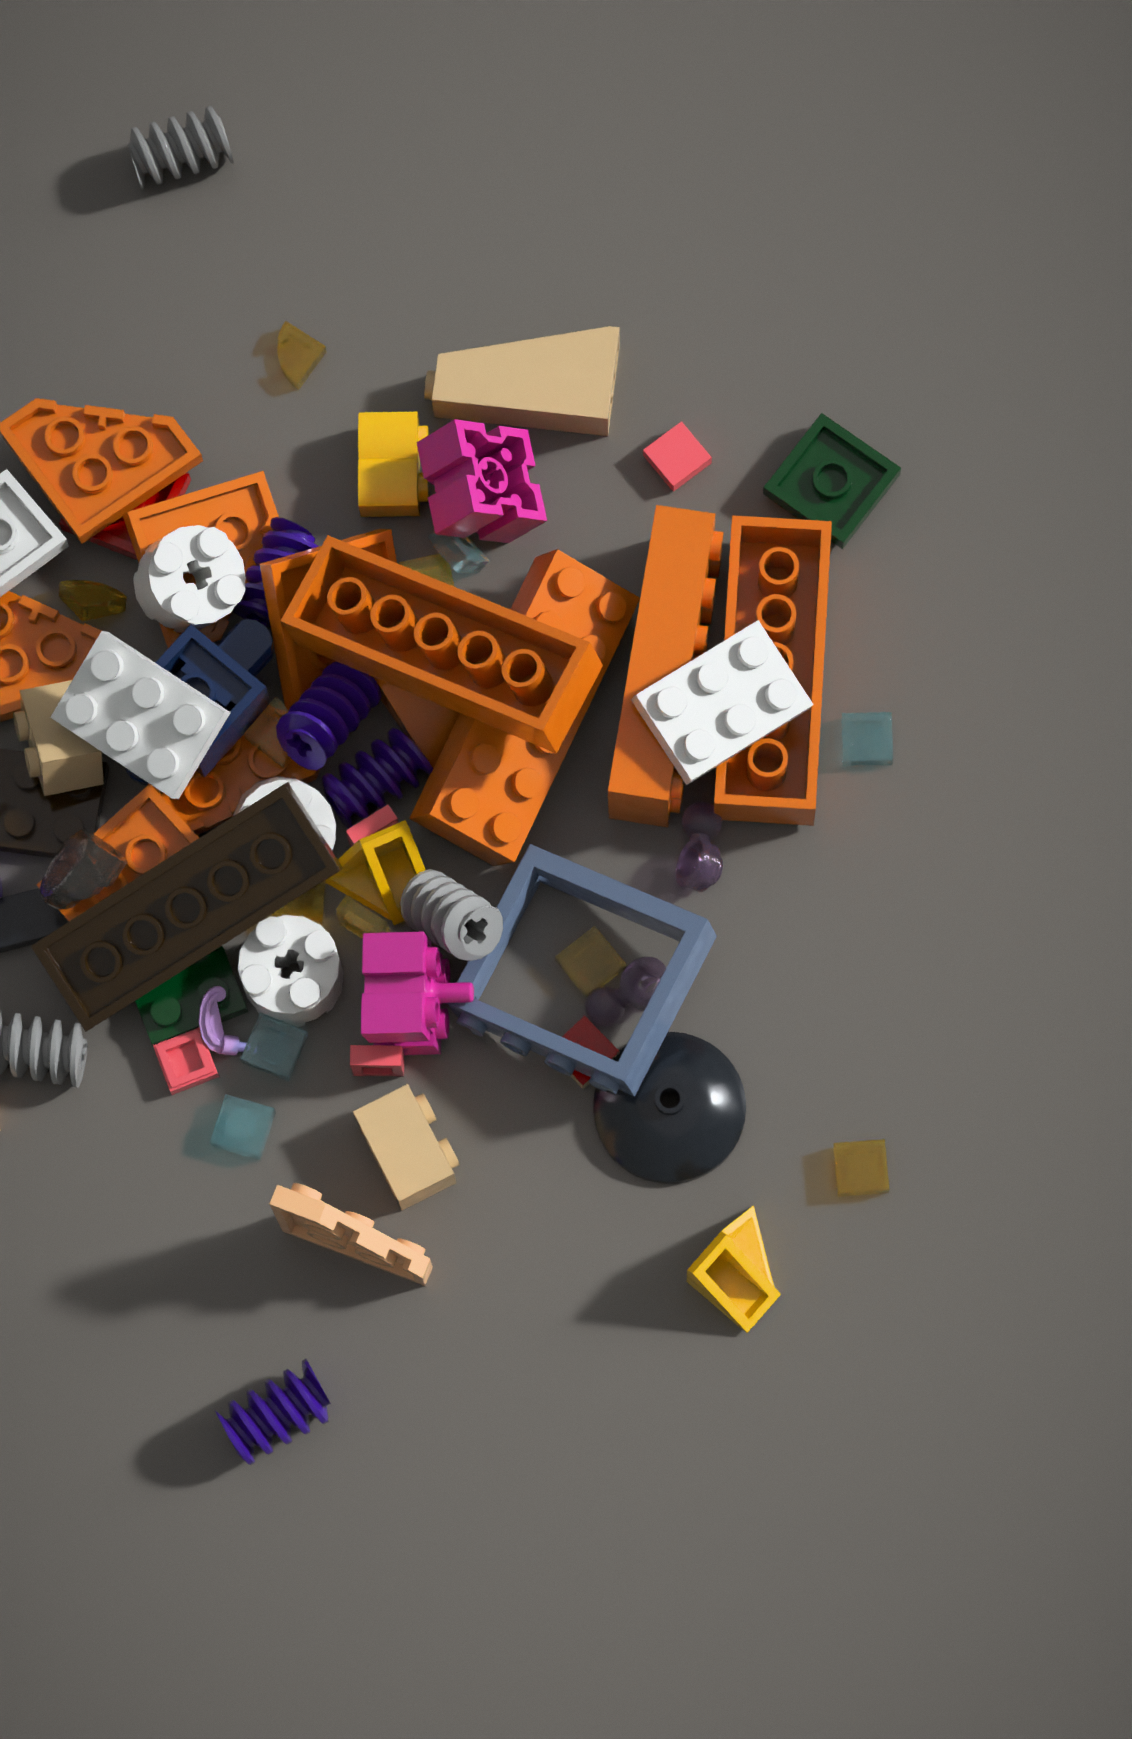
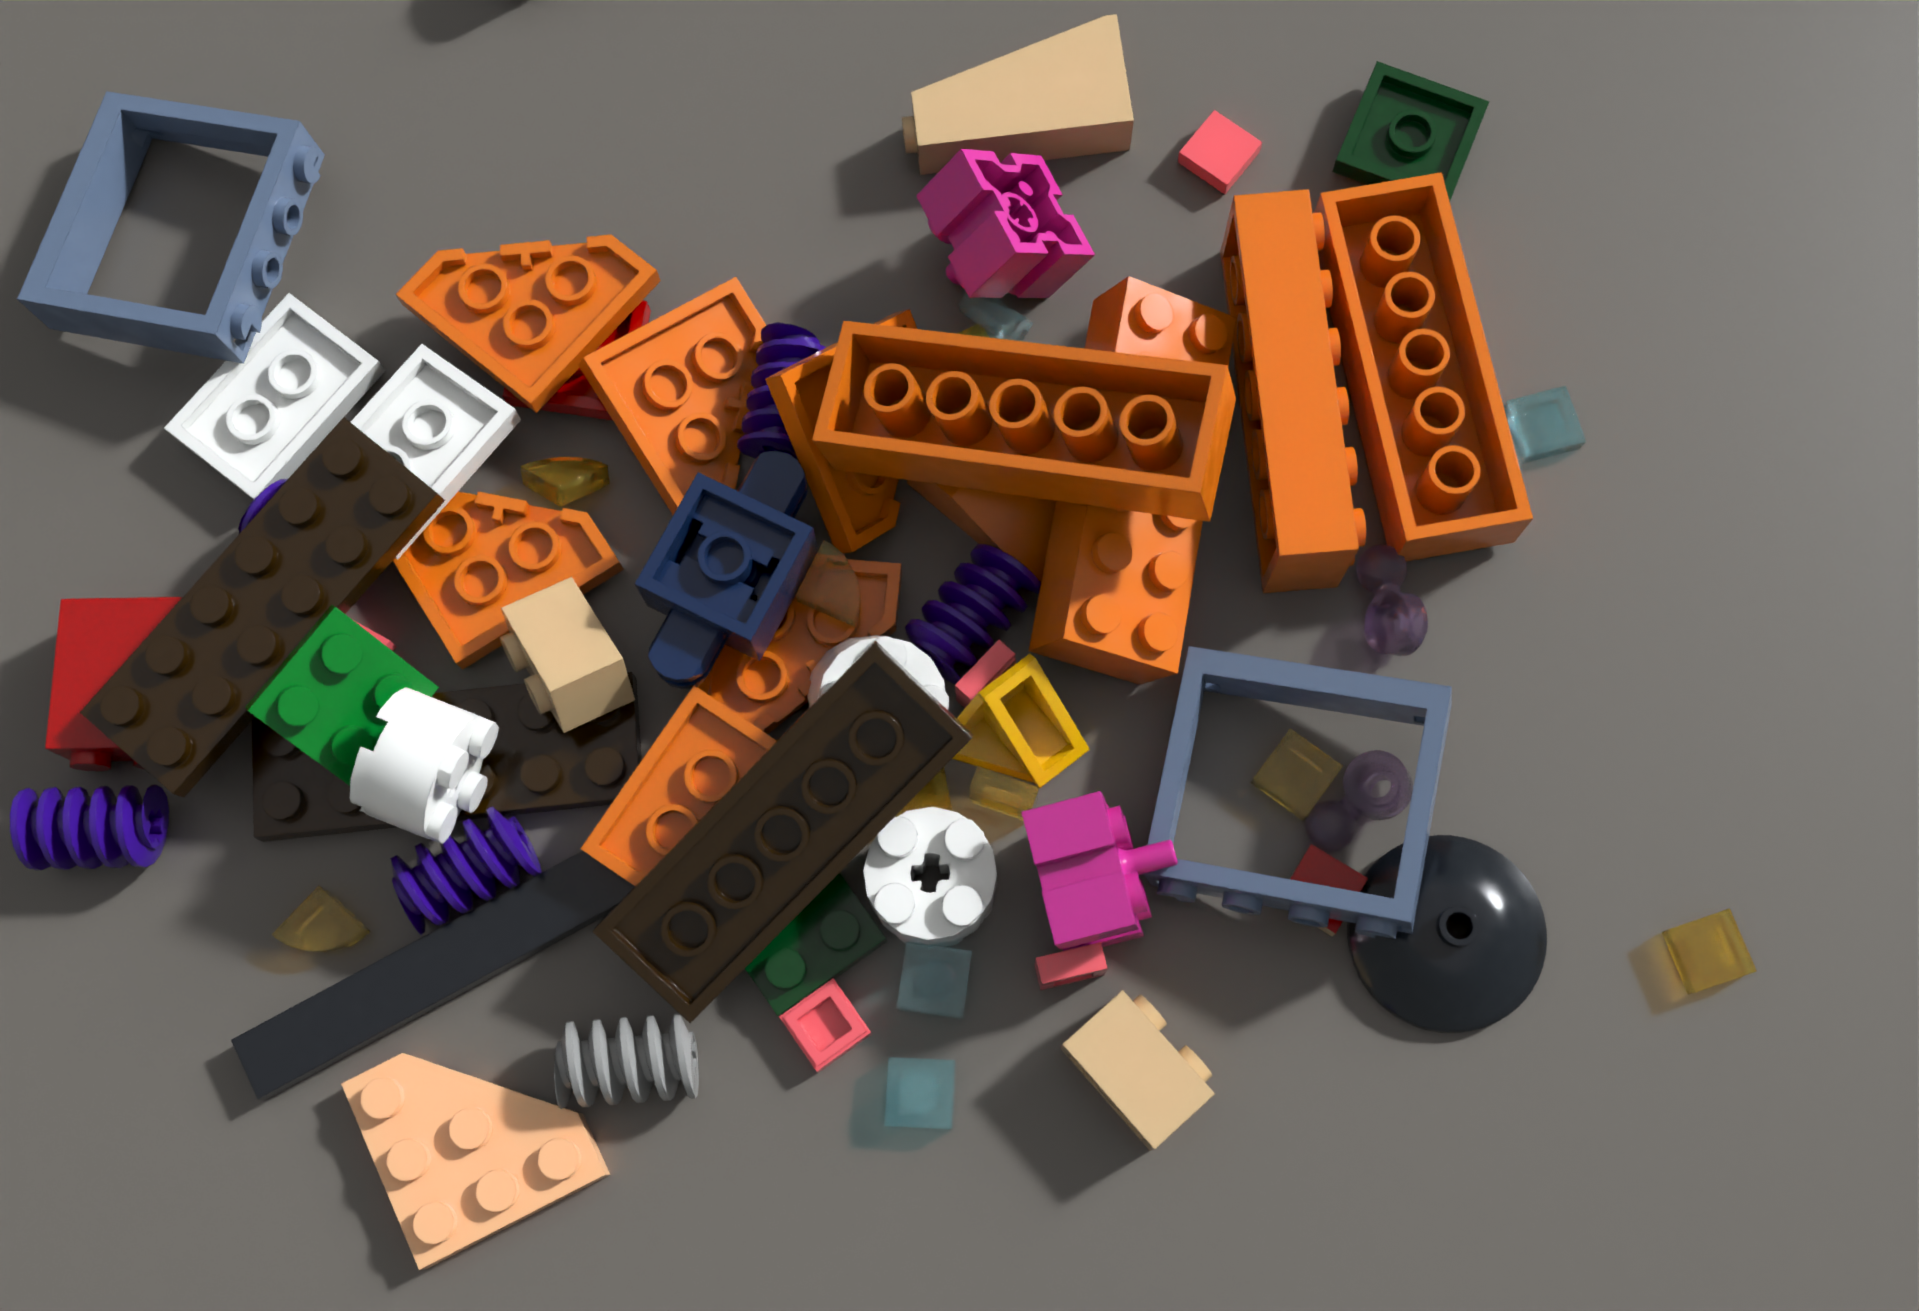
camera: 15 degrees left, 0 degrees up
(80, 870) = (633, 818): clear smoke rock -> none
(140, 715) = (662, 600): white plate -> none
(211, 561) = (700, 391): white brick -> none
(211, 1025) = (848, 973): lavender piece -> none
(298, 354) = (741, 138): clear yellow tile -> none
(326, 714) = (894, 547): dark purple piece -> none
(347, 1233) = (1109, 1209): light nougat plate -> none
(390, 464) = (887, 236): yellow brick -> none
(451, 915) = (1119, 758): light grey piece -> none
(722, 702) = (1388, 413): white plate -> none
(736, 1272) = (1597, 1129): yellow slope -> none

